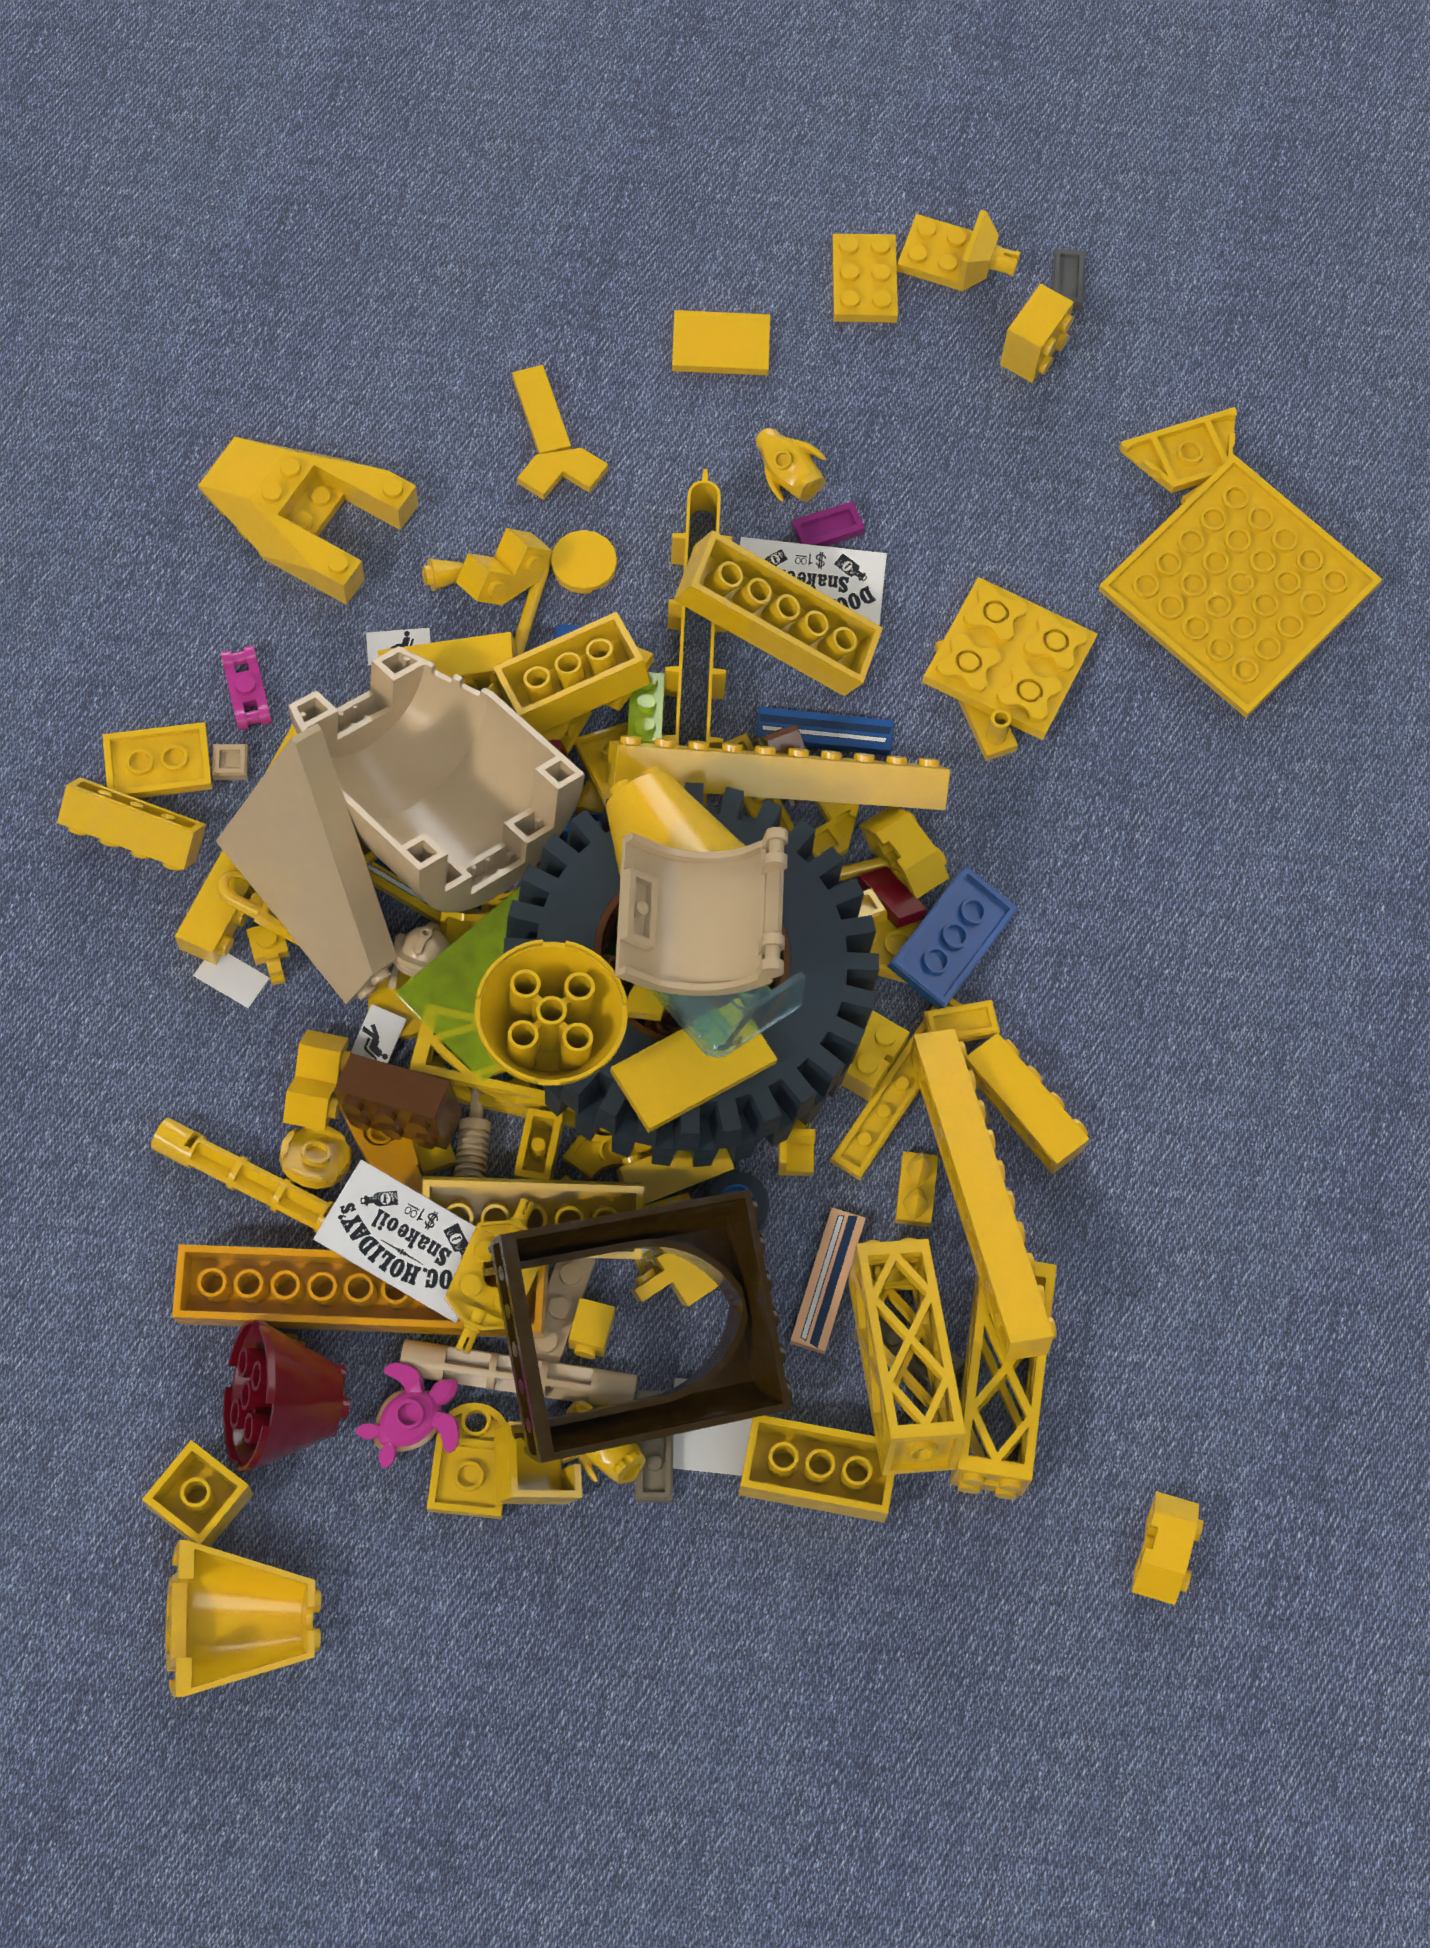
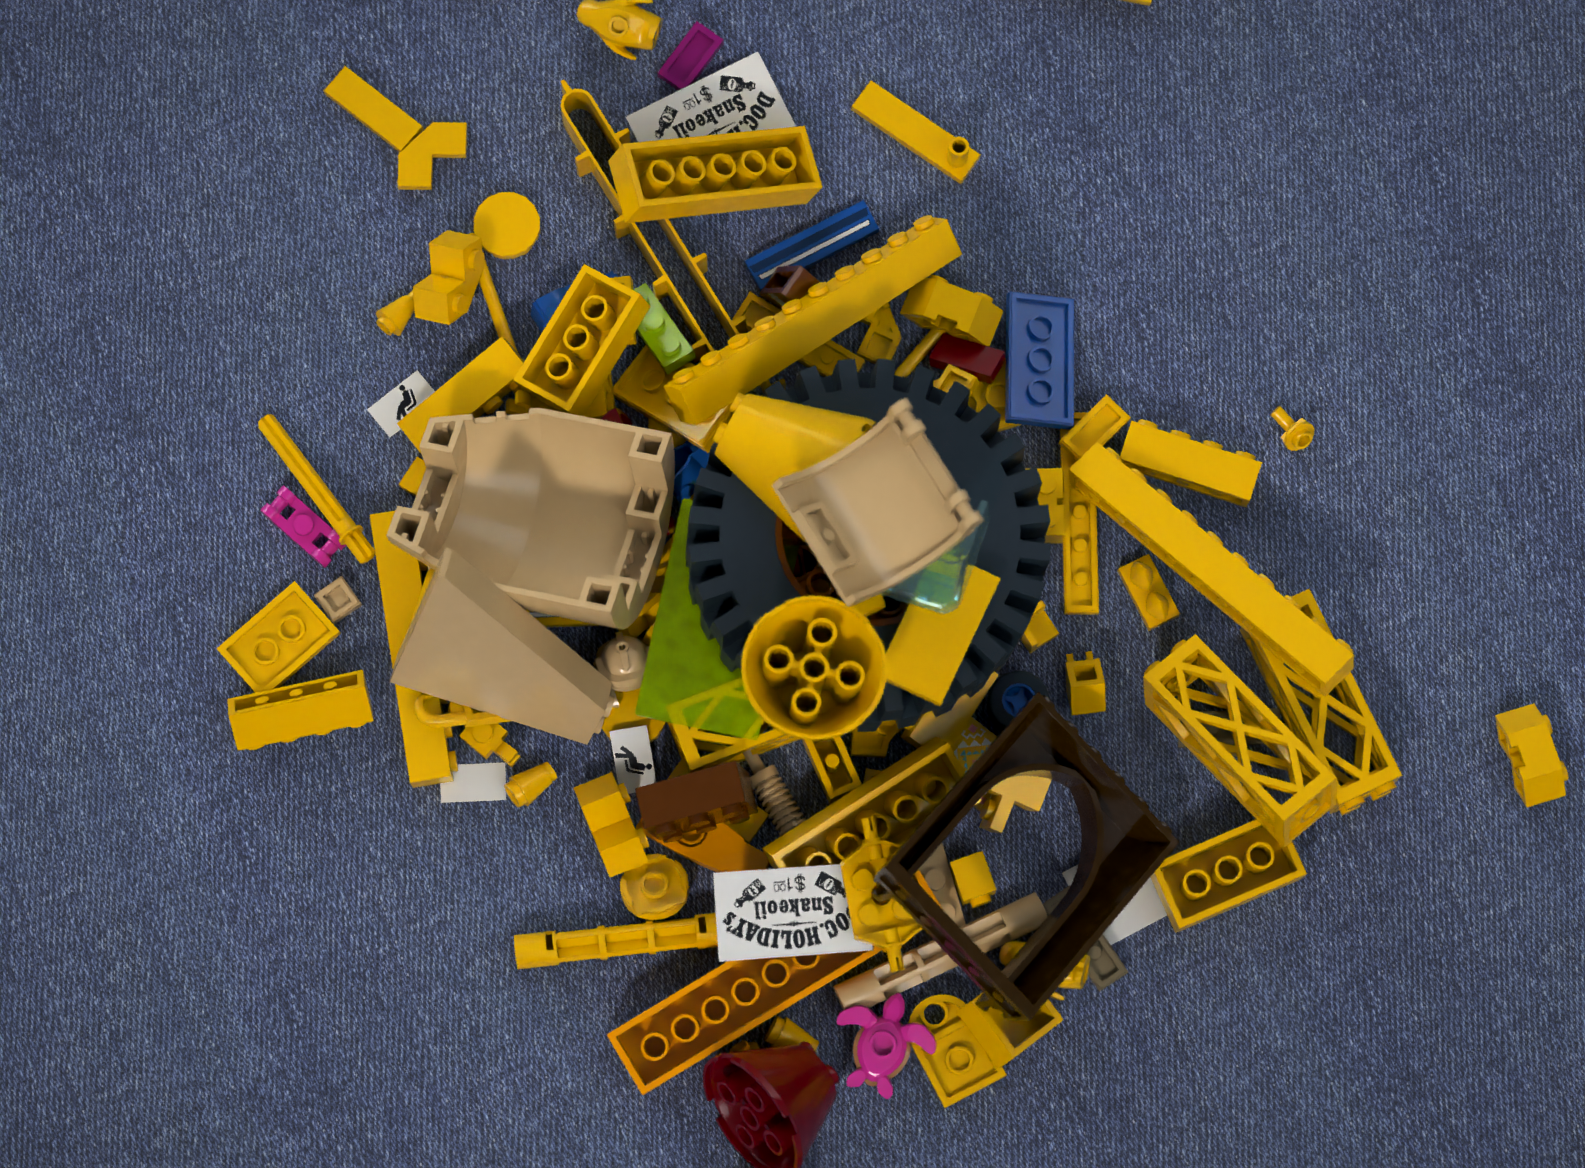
camera: 30 degrees left, 10 degrees up
(275, 1005) = (529, 784): none -> yellow cone
(276, 704) = (345, 527): none -> yellow axle
(288, 497) = (212, 333): yellow wedge -> none
(339, 1351) = (786, 1032): none -> yellow cone
(804, 1227) = (1085, 685): none -> yellow brick
(827, 1281) = (1130, 716): tile -> none
(1010, 657) = (923, 80): yellow piece -> none
(1138, 1136) = (1295, 431): none -> yellow plate

